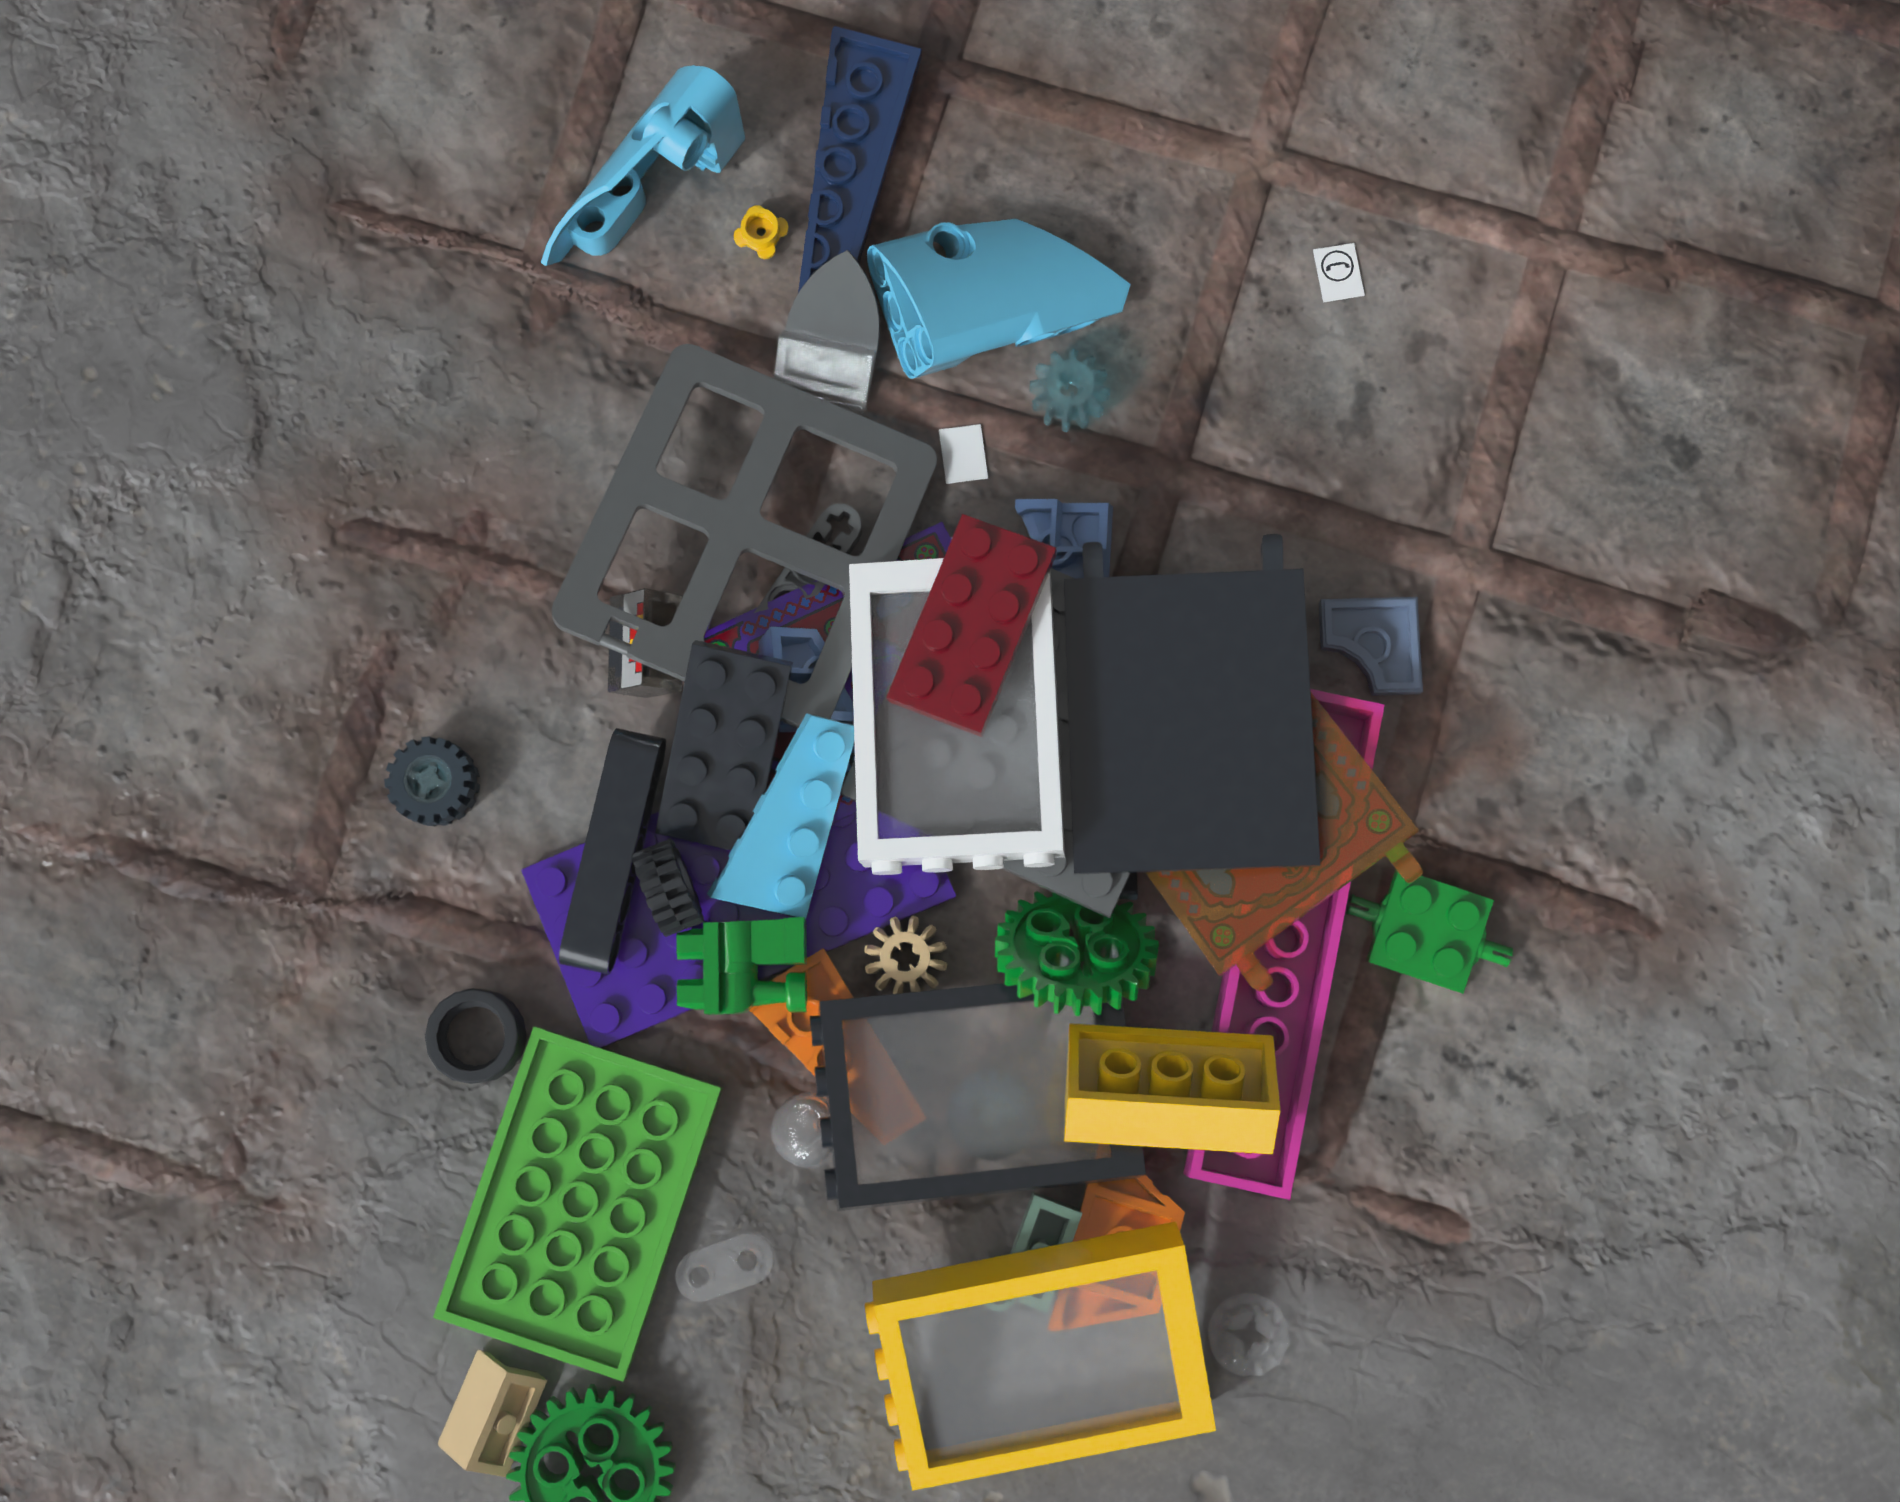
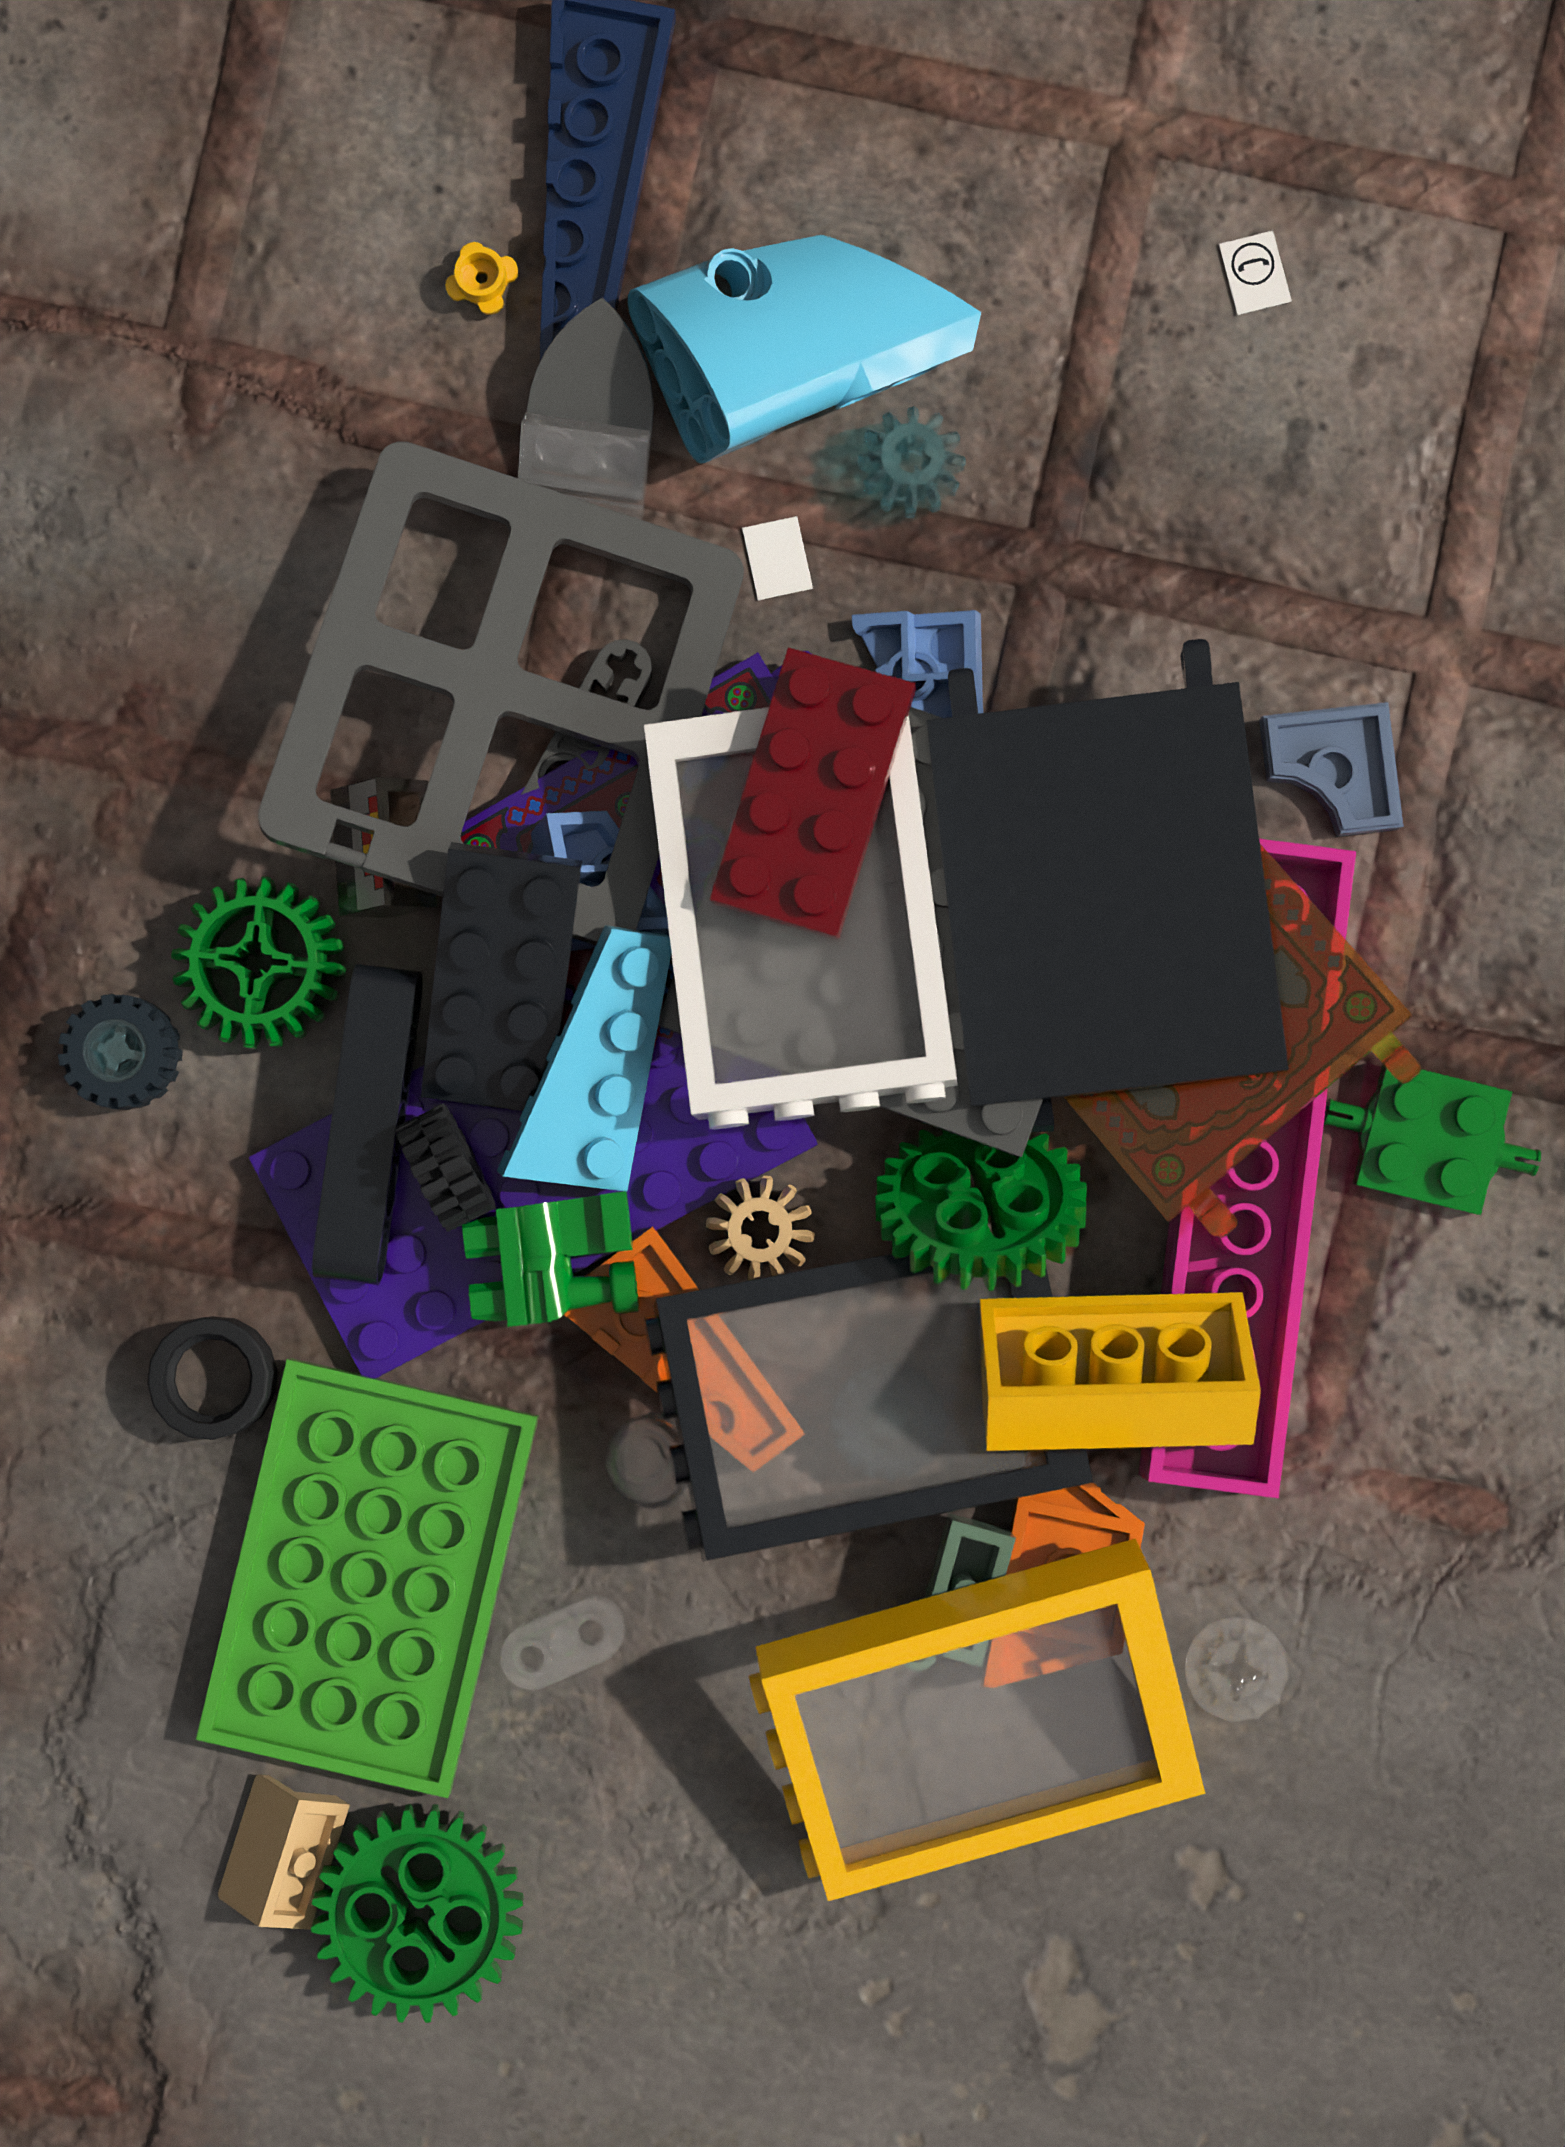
camera: 10 degrees left, 5 degrees up
(546, 702) = (258, 935): none -> green gear
(688, 123) = (372, 142): medium azure panel -> none

